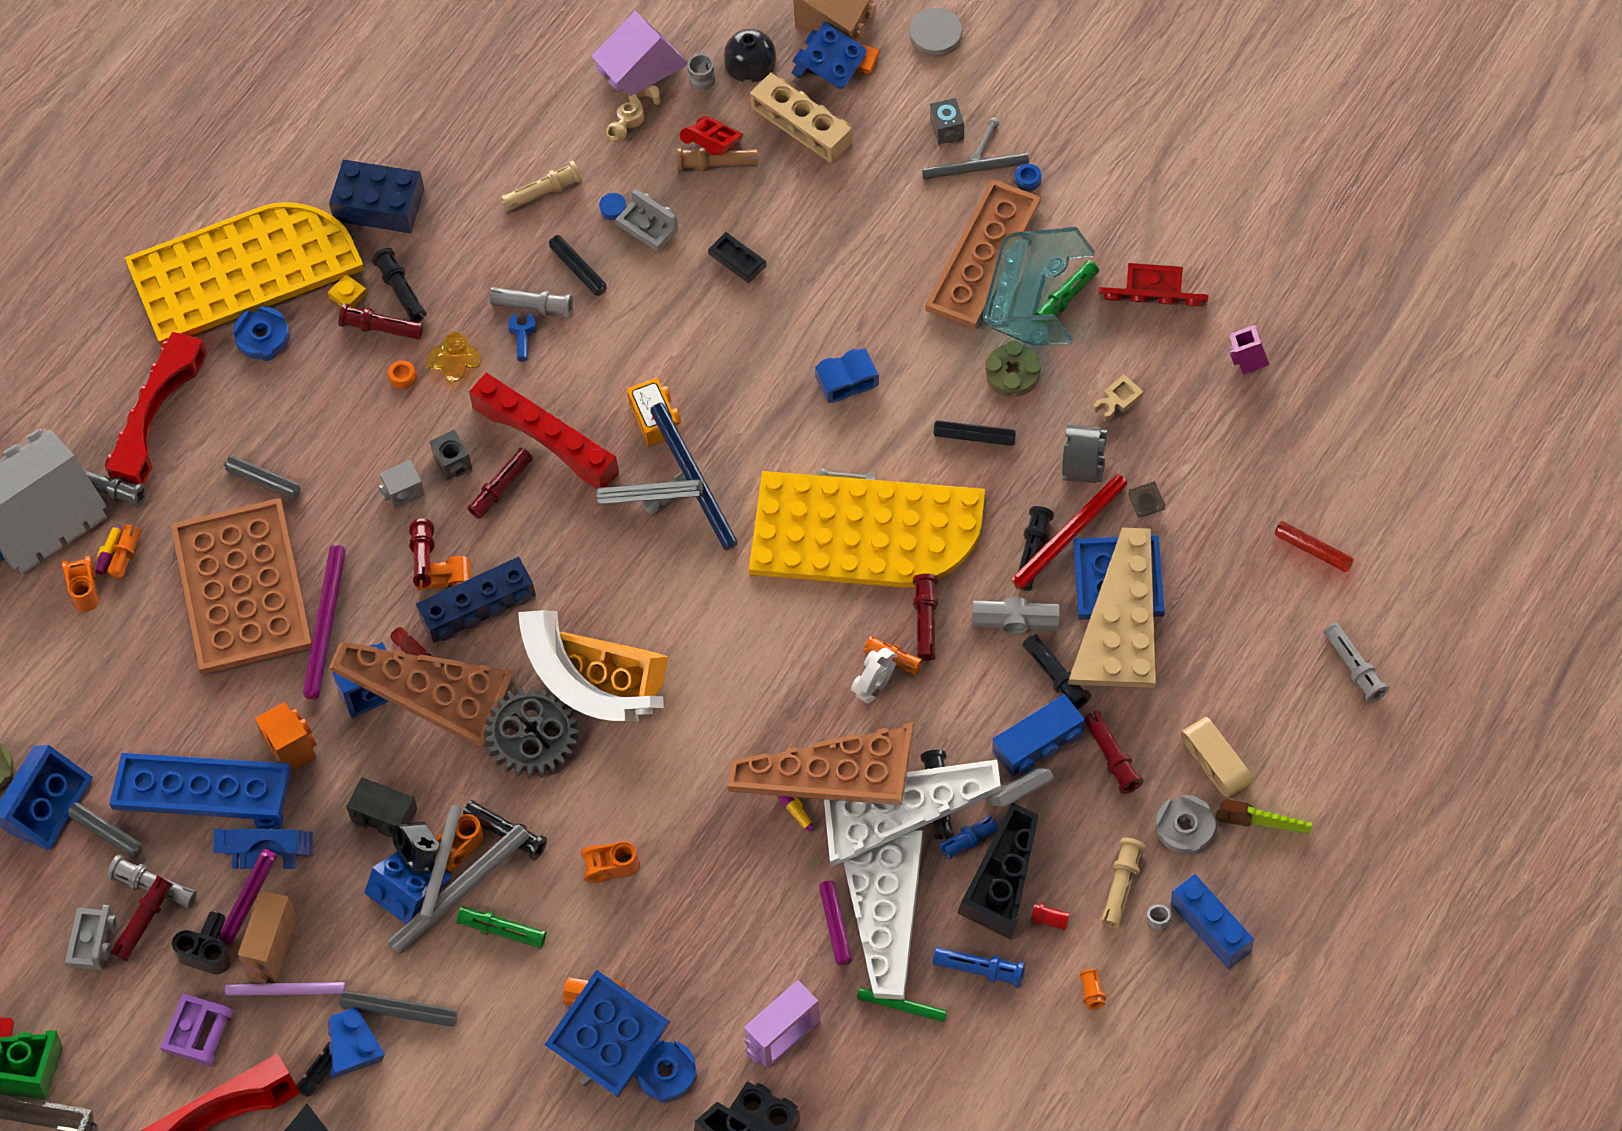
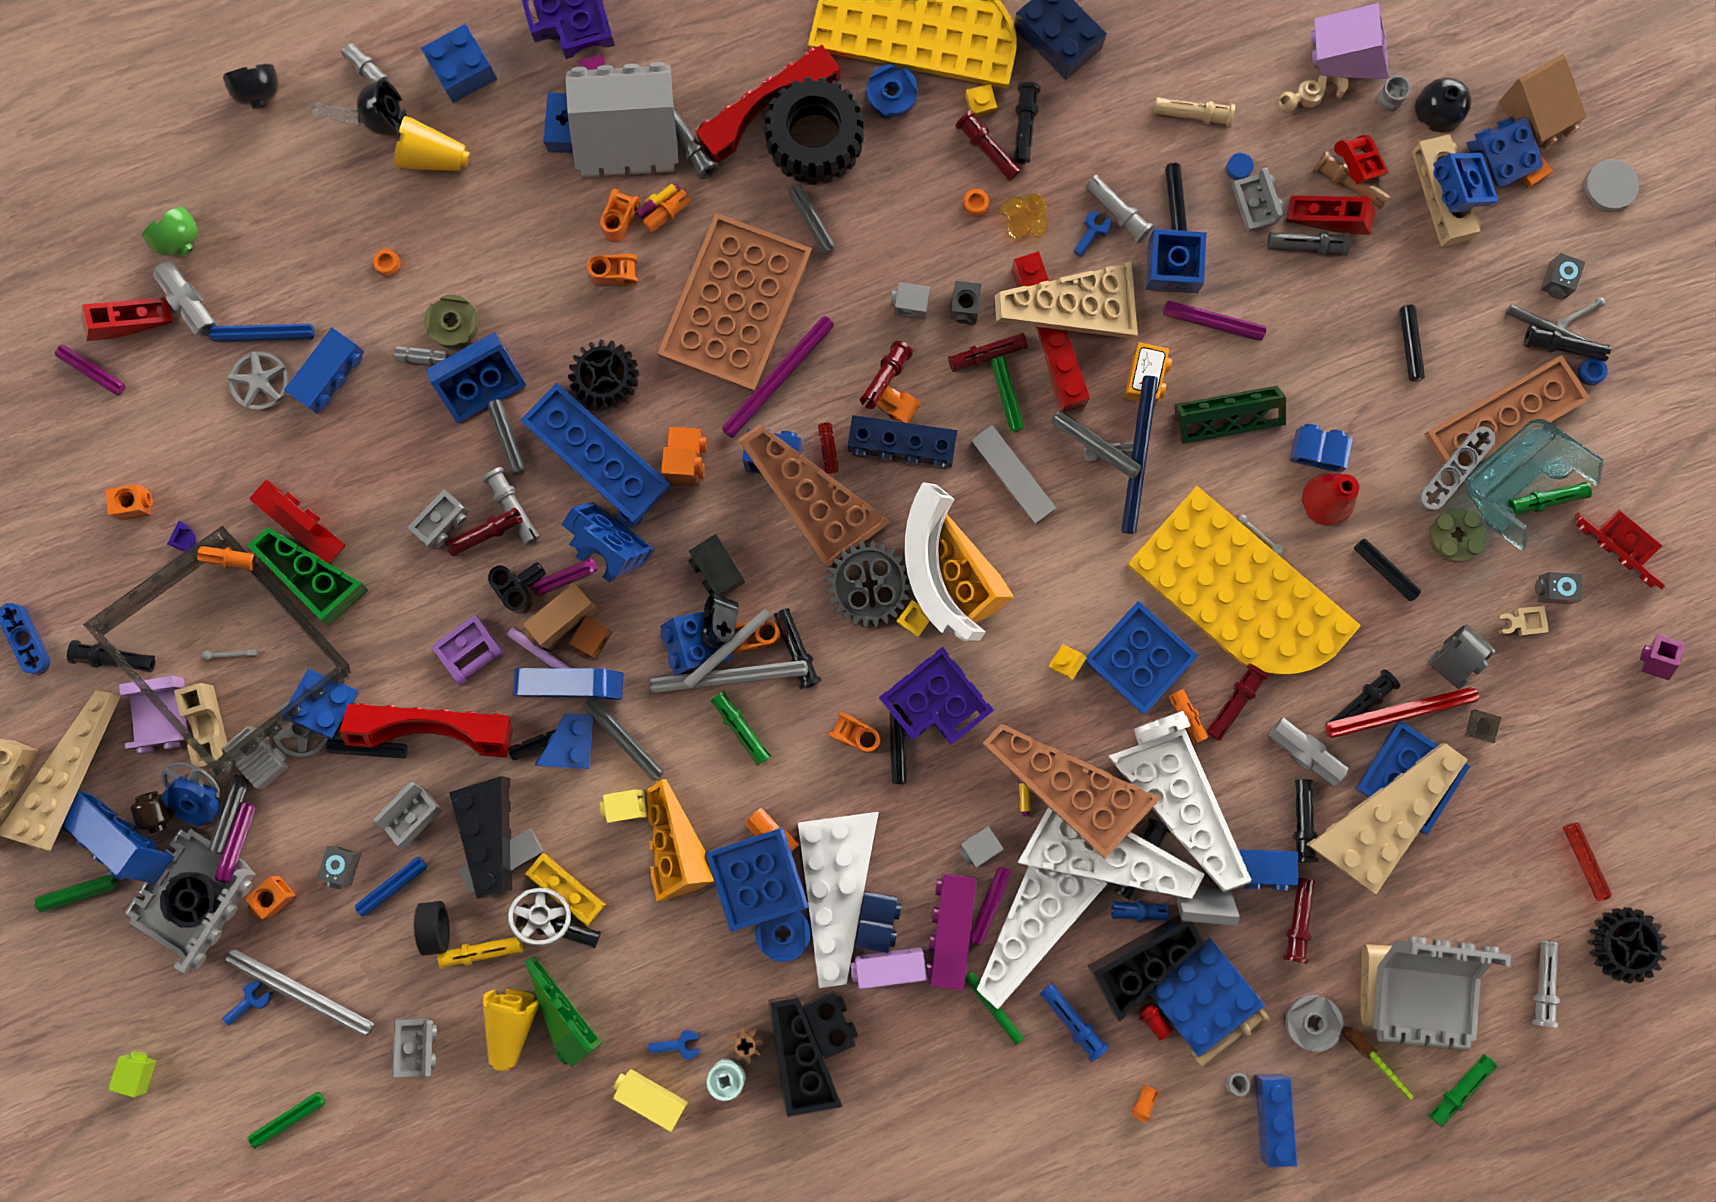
camera: 35 degrees right, 20 degrees up
(110, 628) = (615, 269): none -> orange piece
(148, 712) = (607, 366): none -> black gear
(206, 374) = (810, 99): none -> black tyre
(307, 942) = (590, 638): none -> dark orange brick
(311, 989) = (568, 683): none -> beam
(441, 1055) = (623, 806): none -> light yellow brick
(519, 1068) = (678, 854): none -> light orange wedge
(542, 505) = (1007, 394): none -> green axle
(550, 388) = (1082, 302): none -> tan wing
(593, 734) = (913, 619): none -> yellow plate
(595, 565) = (1013, 474): none -> light grey tile
(612, 308) = (1176, 261): none -> blue brick
(654, 847) = (898, 753): none -> black axle
(658, 778) = (937, 696): none -> dark purple piece
(673, 982) = (835, 872): none -> white wing
(680, 336) = (1214, 320): none -> magenta axle
(719, 192) = (1333, 213): none -> red slope
(727, 220) = (1321, 243): none -> dark grey pin
(737, 257) = (1307, 282): black plate -> none
(740, 997) = (877, 922): none -> dark blue brick
(741, 393) = (1231, 405): none -> dark green fence
(754, 680) = (1067, 661): none -> yellow plate
(790, 878) = (980, 847): none -> light grey brick
(808, 98) = (1464, 181): none -> blue plate
(816, 636) = (1140, 658): none -> blue plate
(816, 962) = (952, 931): none -> magenta brick
(862, 248) = (1412, 343): none -> black axle
(883, 404) = (1330, 498): none -> red cone
(942, 719) = (1186, 803): none -> white wing
(971, 317) = (1456, 469): none -> light grey beam
(977, 173) = (1555, 341): none -> black pin
(1075, 865) = (1206, 998): none -> blue plate
(1126, 353) = (1559, 588): none -> dark grey brick
(1258, 722) = (1431, 992): none -> light grey hinge
(1349, 803) = (1458, 1095): none -> green pin
(1387, 599) = (1618, 964): none -> black gear

